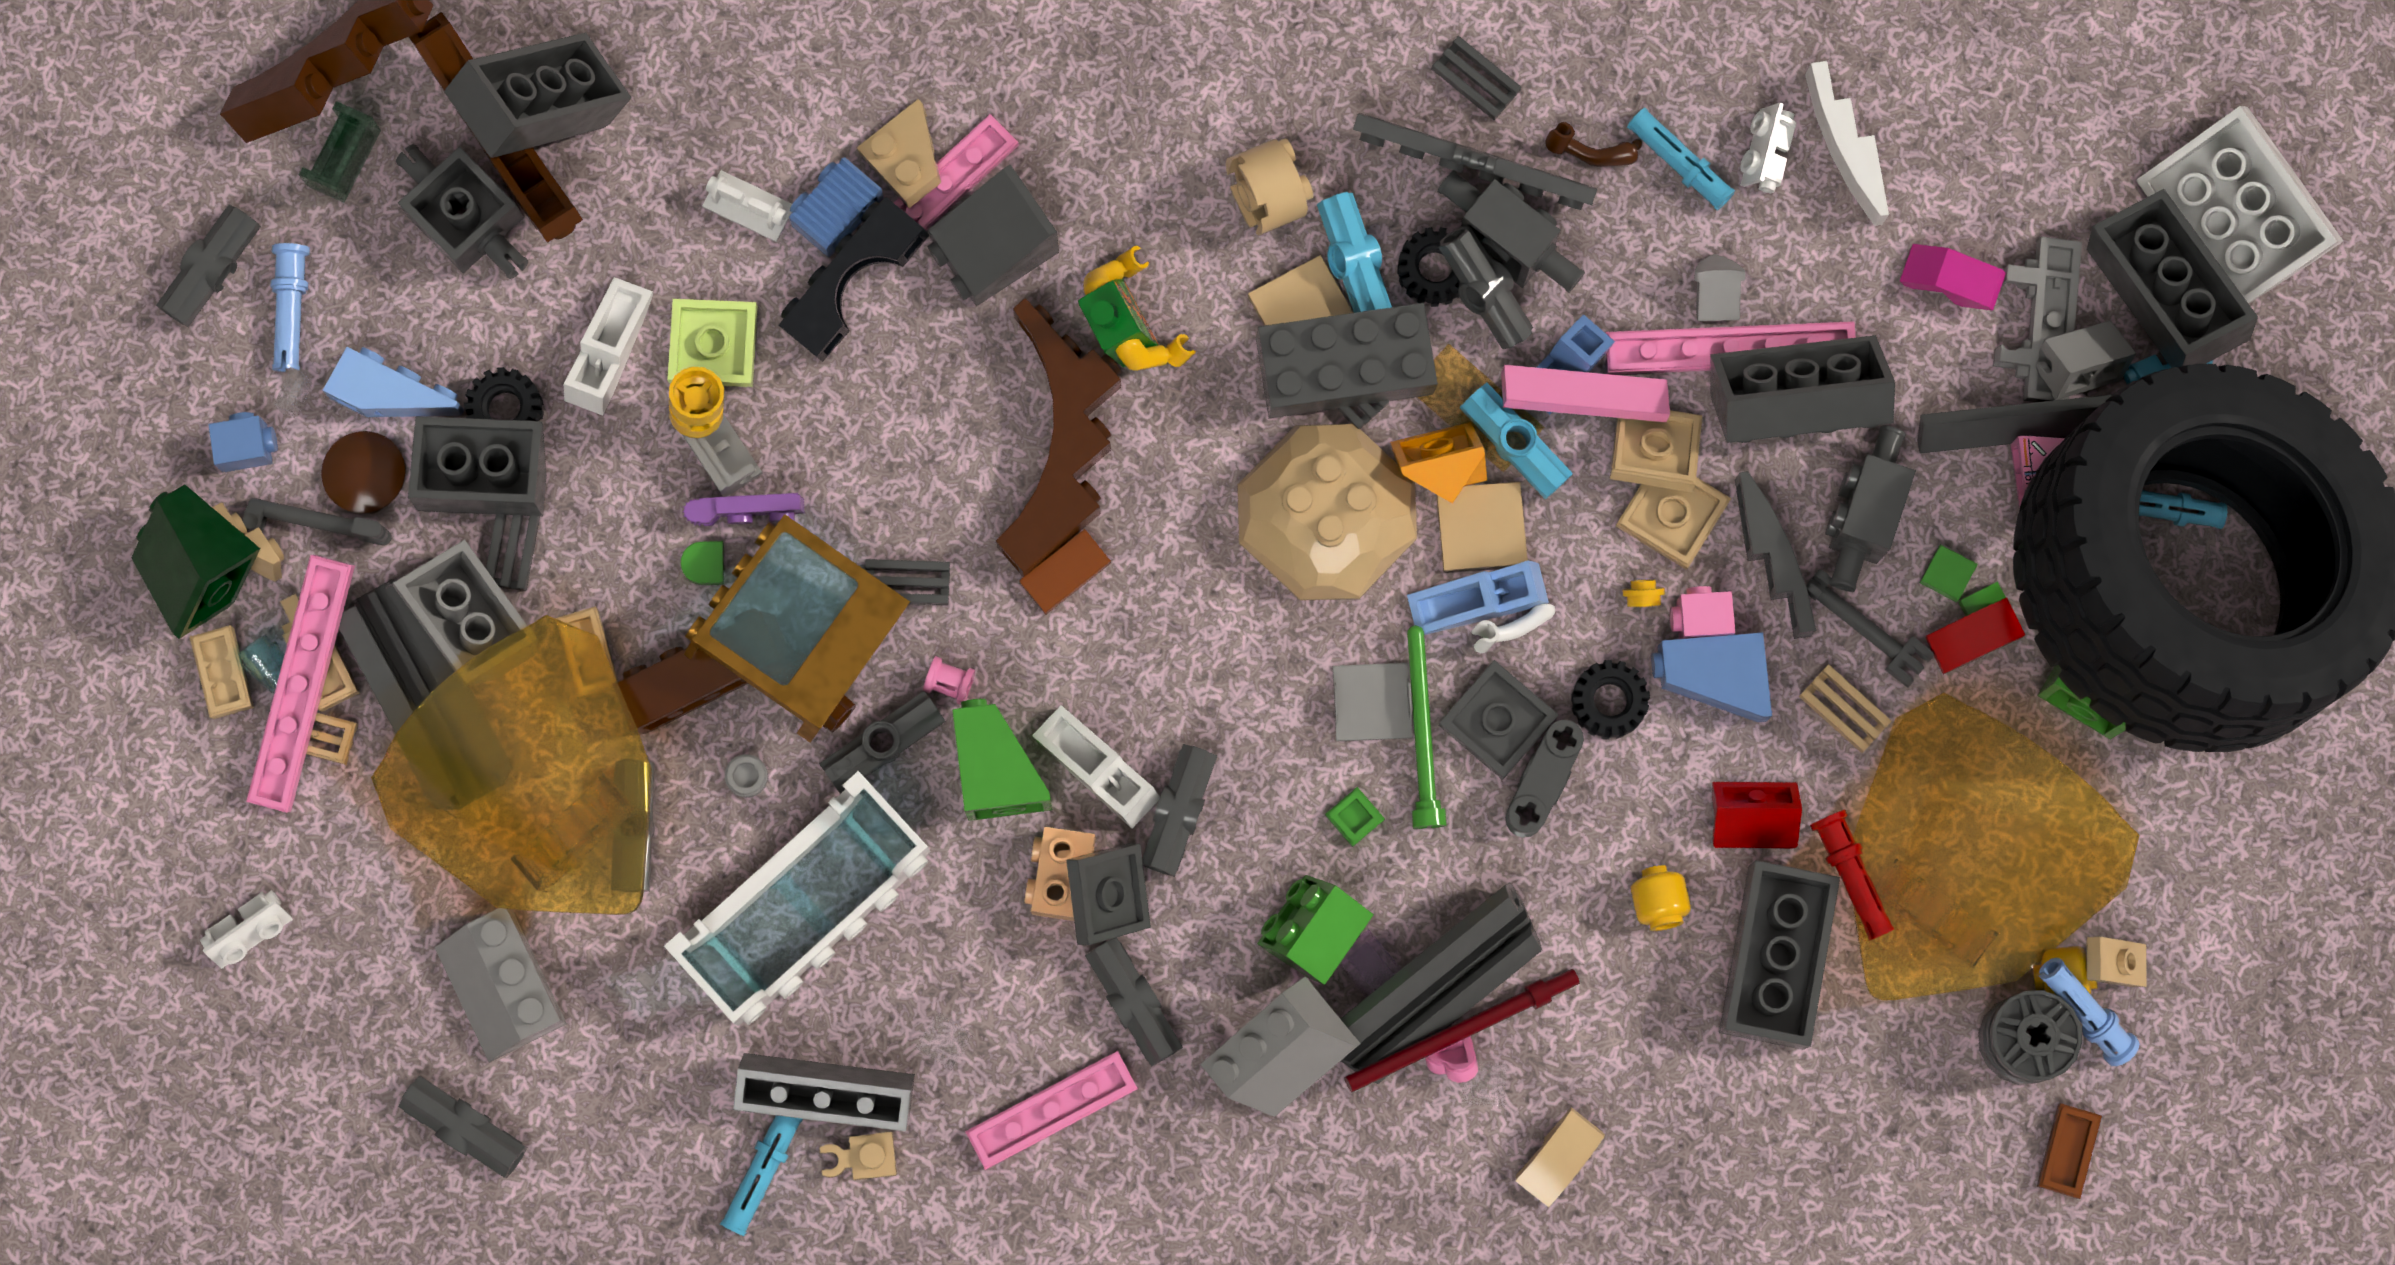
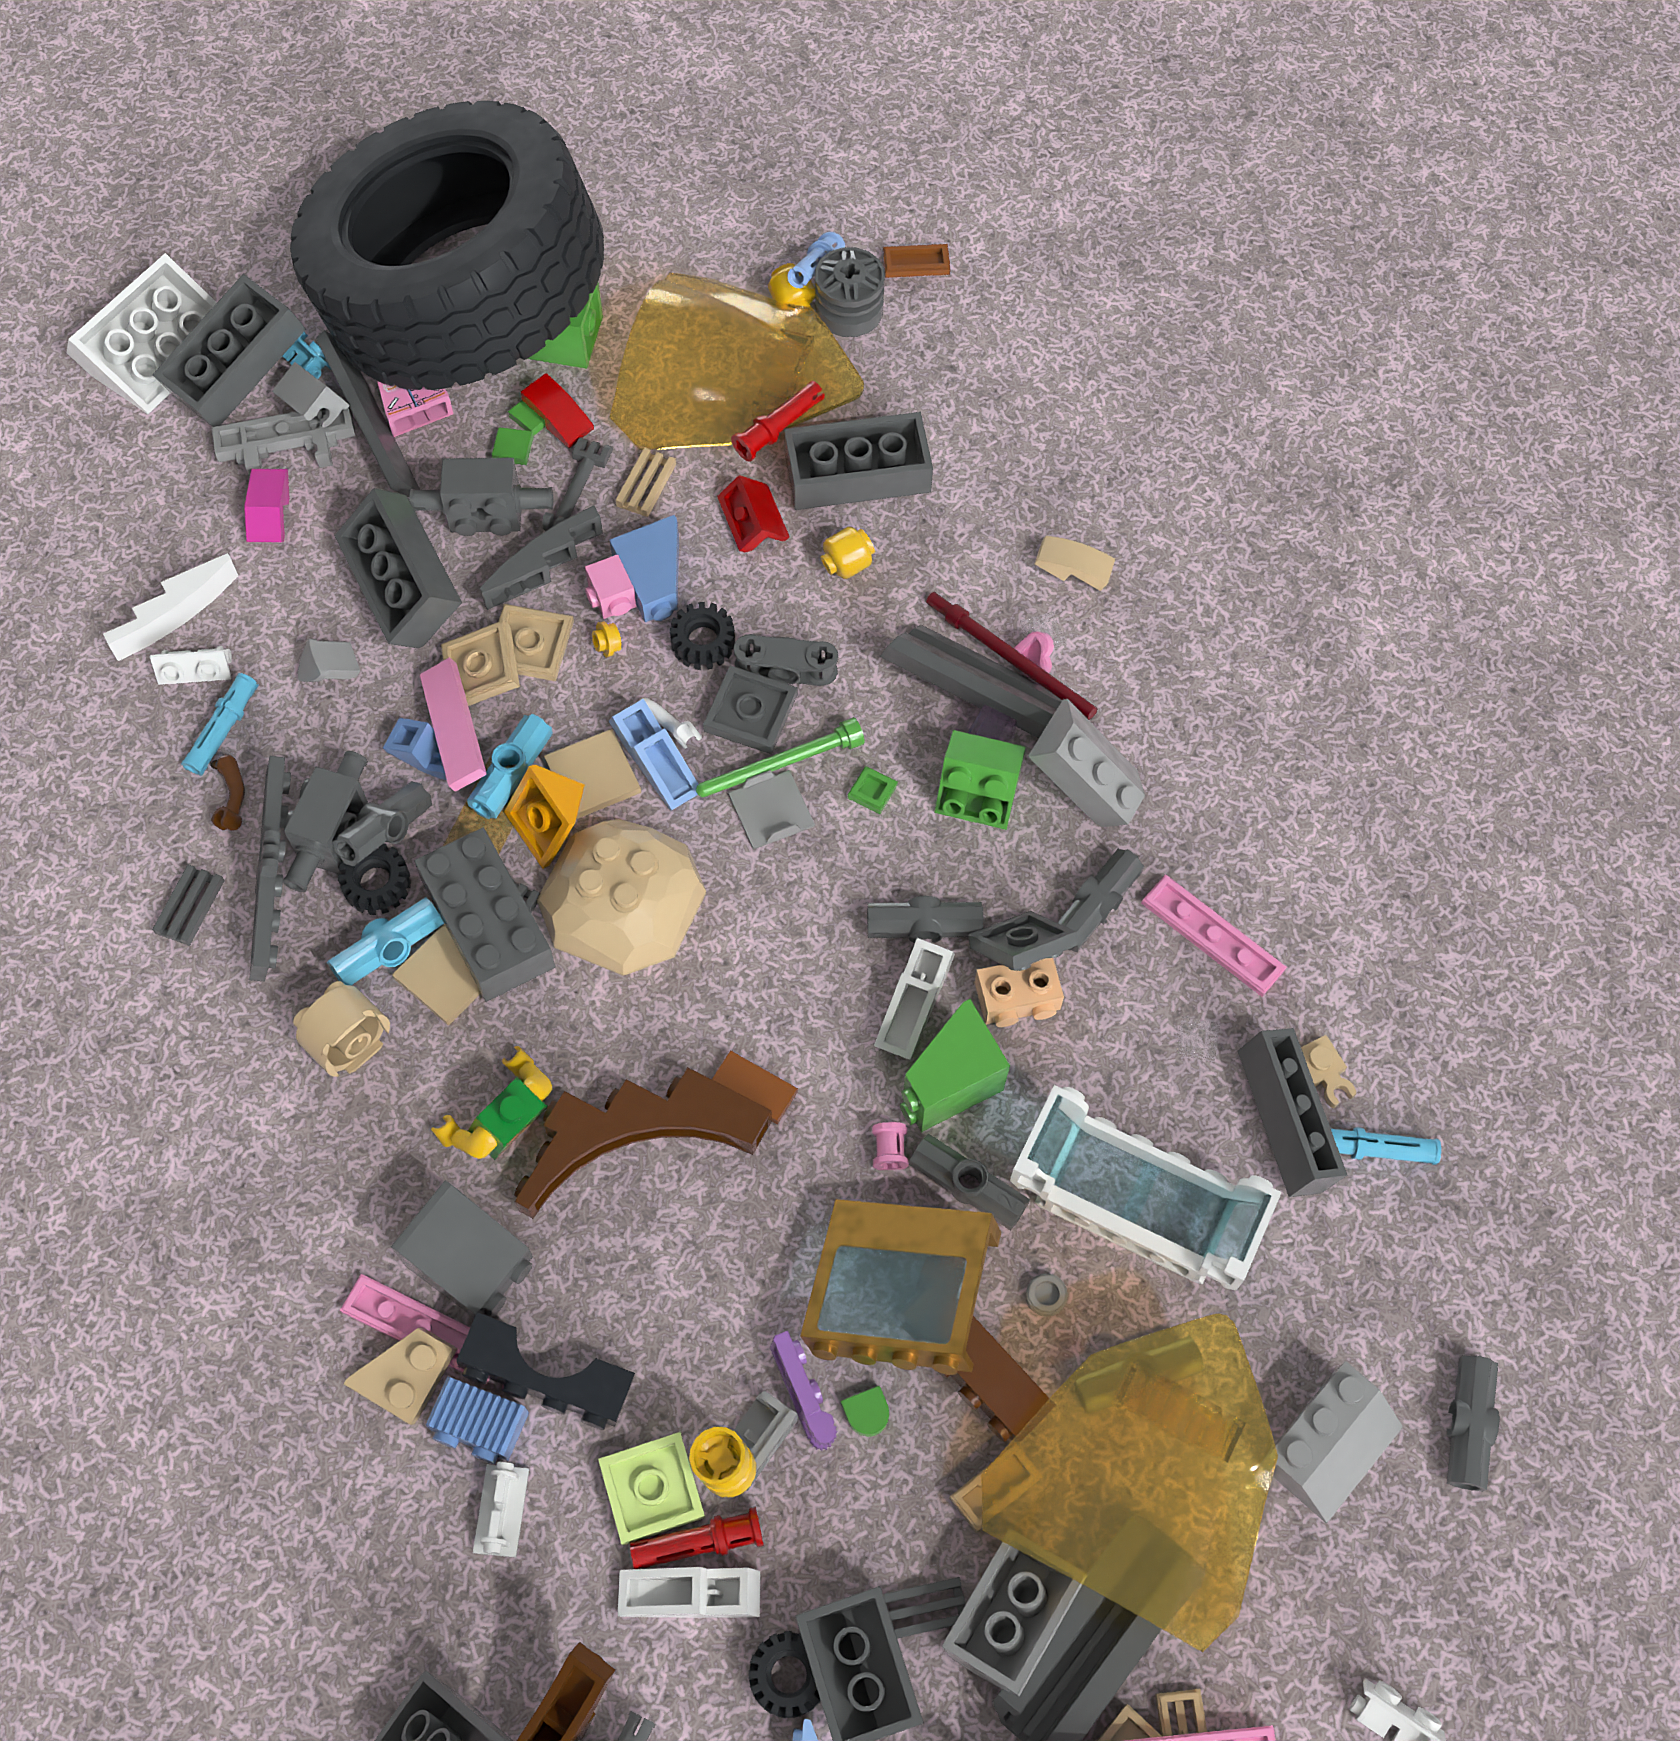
camera: 110 degrees left, 15 degrees down
(647, 386) = (717, 1536): none -> red pin
(922, 566) = (804, 1188): dark grey tile -> none
(1691, 348) = (380, 658): bright pink tile -> none
(2116, 962) = (770, 257): tan plate -> none

